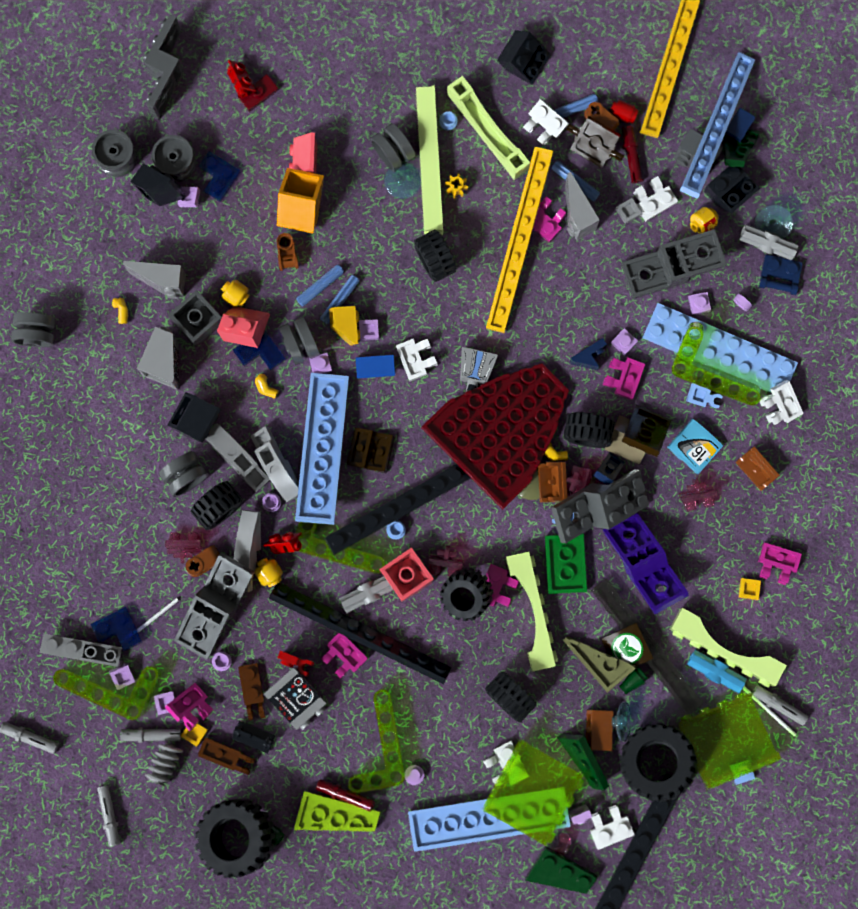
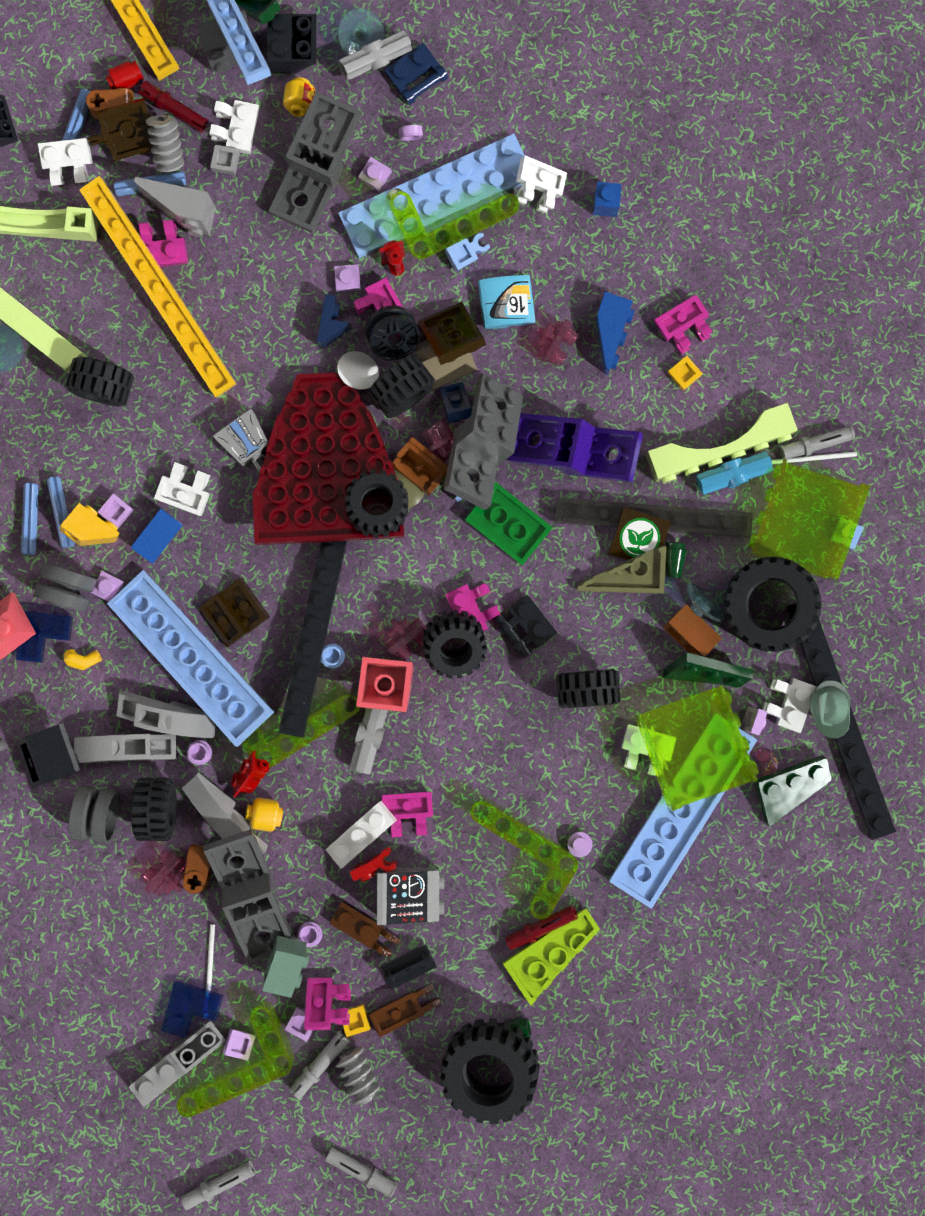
camera: 45 degrees left, 5 degrees up
(191, 662) = (284, 966): none -> sand green brick
(306, 639) = (361, 834): none -> white plate
(360, 633) = (400, 777): black plate -> none
(453, 180) = (57, 304): yellow gear -> none
(520, 629) = (532, 622): none -> black plate
(521, 468) = (371, 484): none -> black tyre
(522, 569) = (476, 569): yellowish green arch -> none
(554, 455) = (395, 443): yellow arm -> none
(576, 395) = (357, 370): none -> white sticker
(606, 170) = (166, 143): none -> light grey piece
(615, 396) = (392, 333): none -> black wheel
(628, 854) = (831, 709): none -> sand green piece
(661, 356) = (393, 254): none -> red hinge
(738, 518) = (610, 323): none -> blue slope
(757, 468) = (580, 262): dark orange hinge -> none
(809, 451) = (607, 199): none -> blue brick

